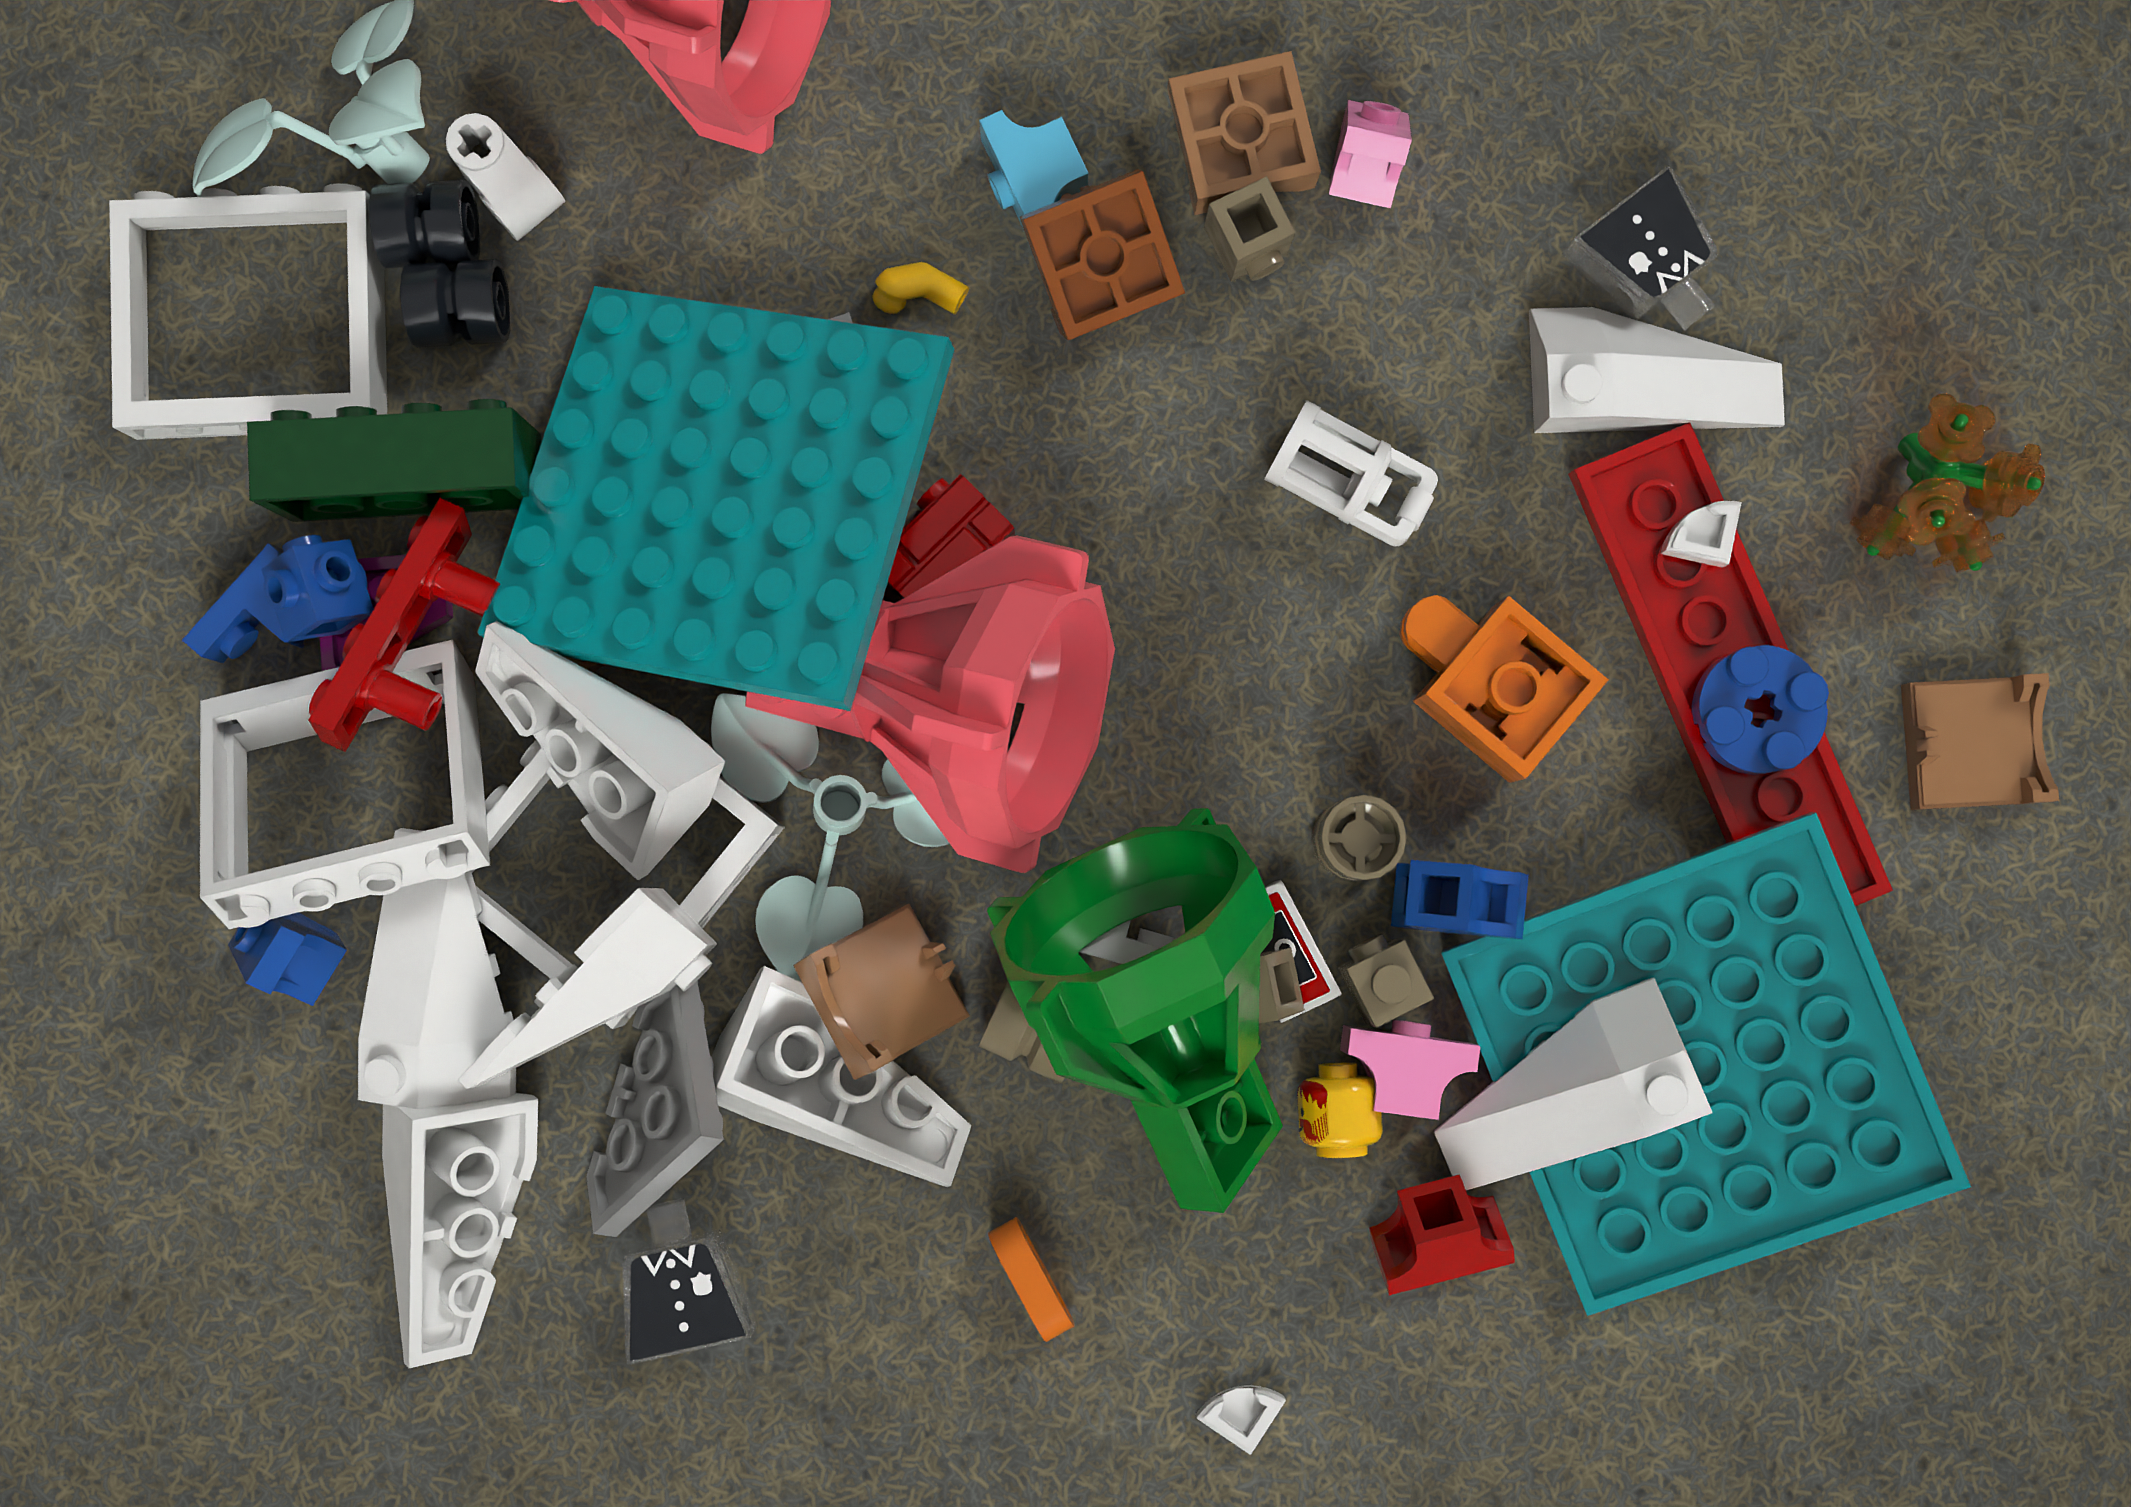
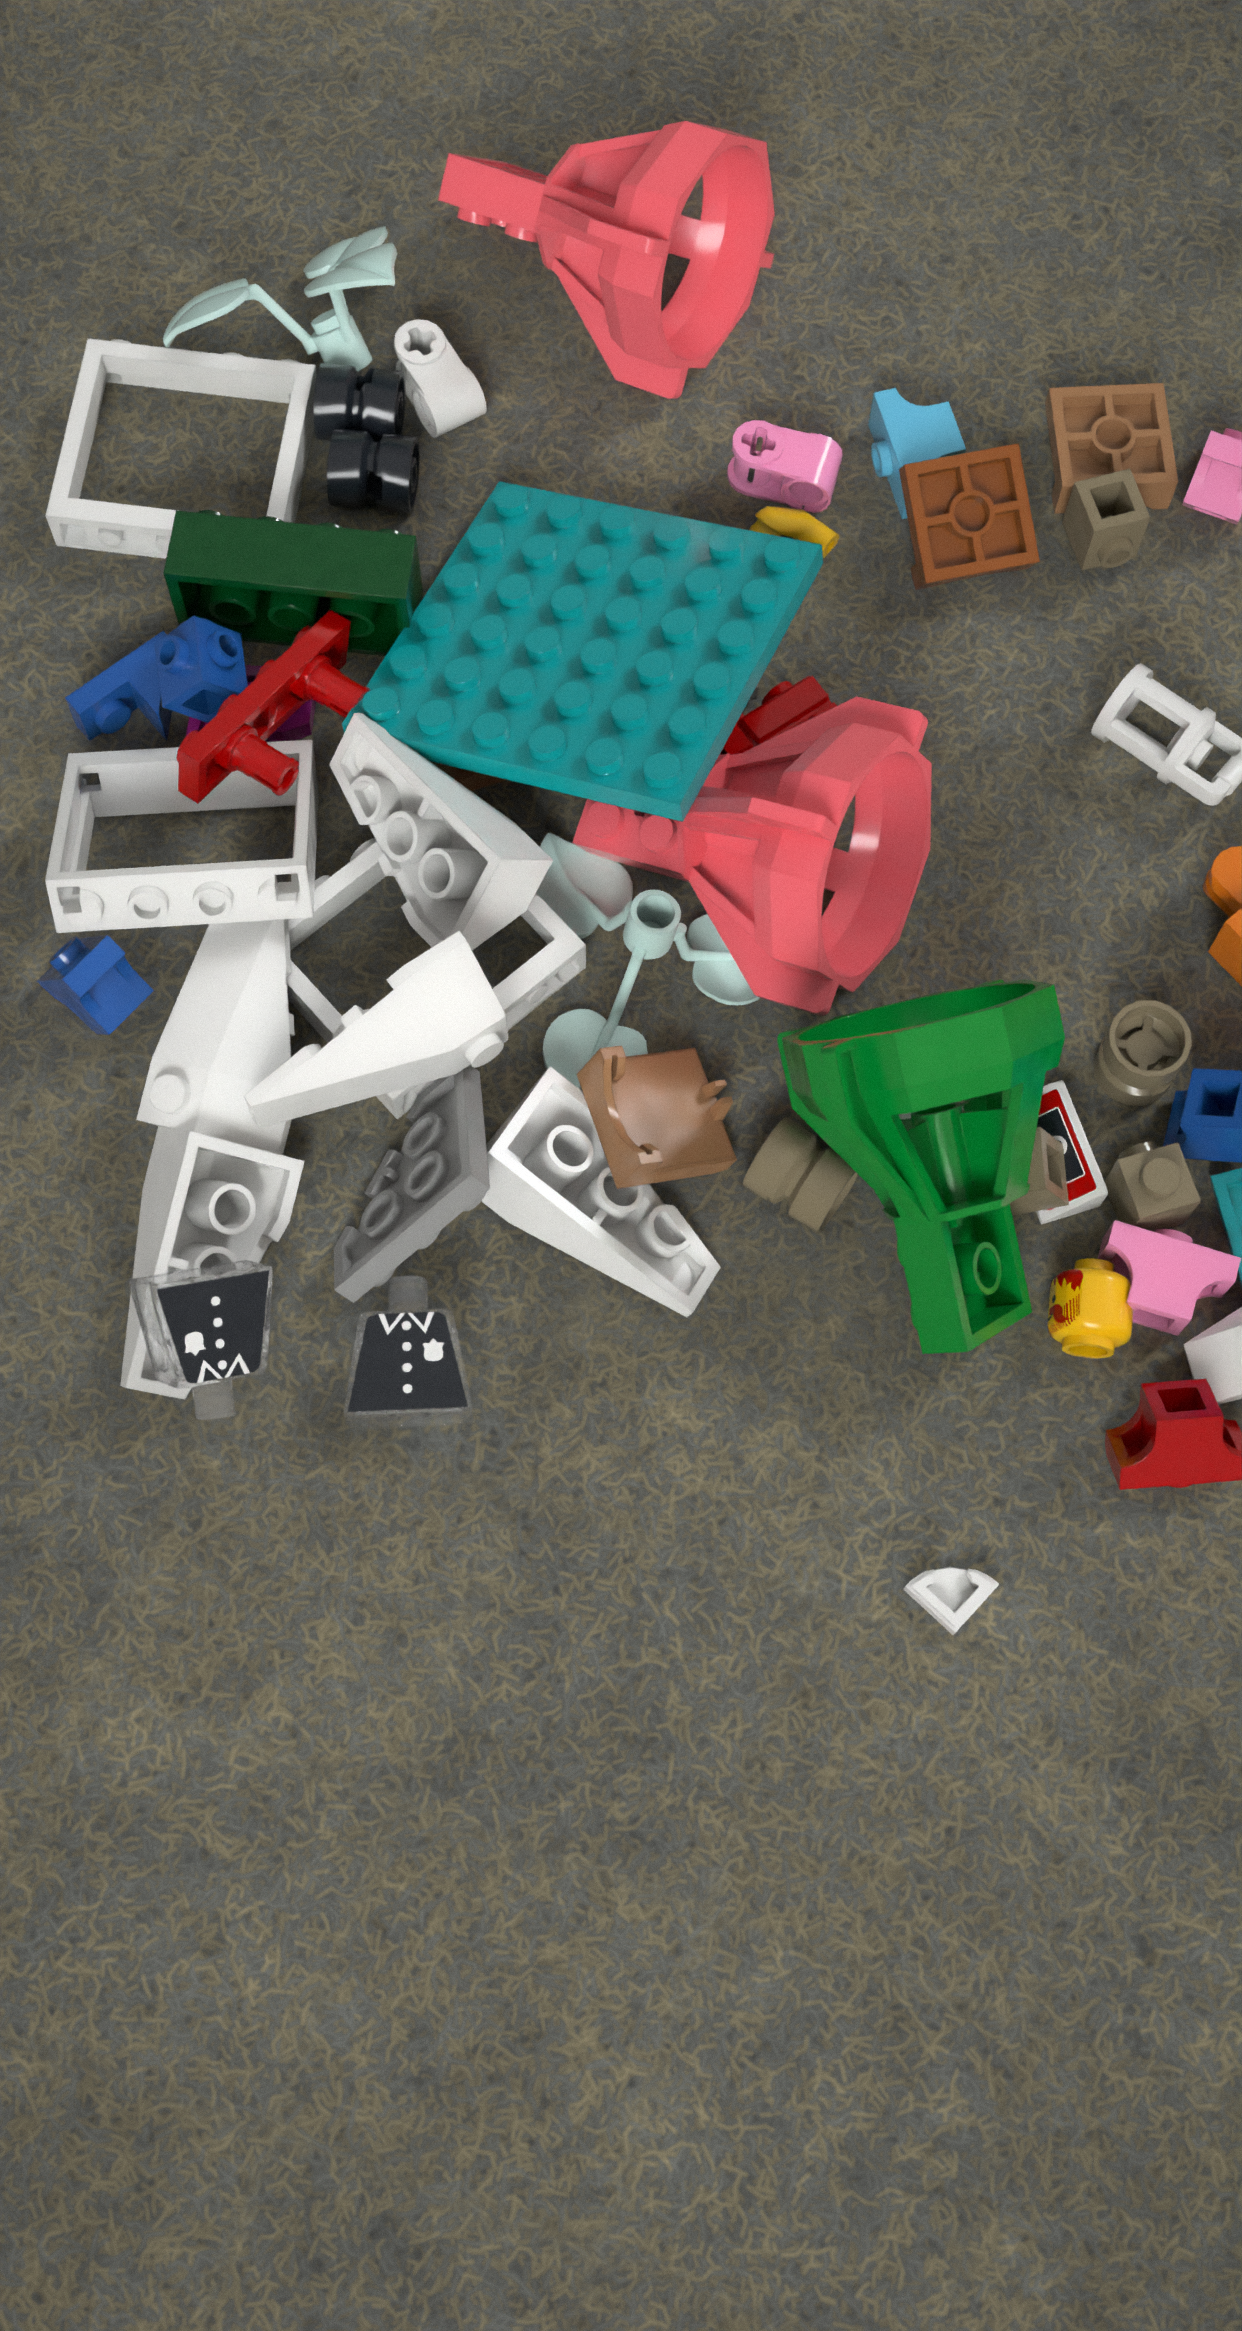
camera: 15 degrees right, 15 degrees down
(475, 1298) = (206, 1329): none -> torso
(905, 216) = (790, 467): none -> bright pink piece
(1031, 1279) = (758, 1417): orange beam -> none

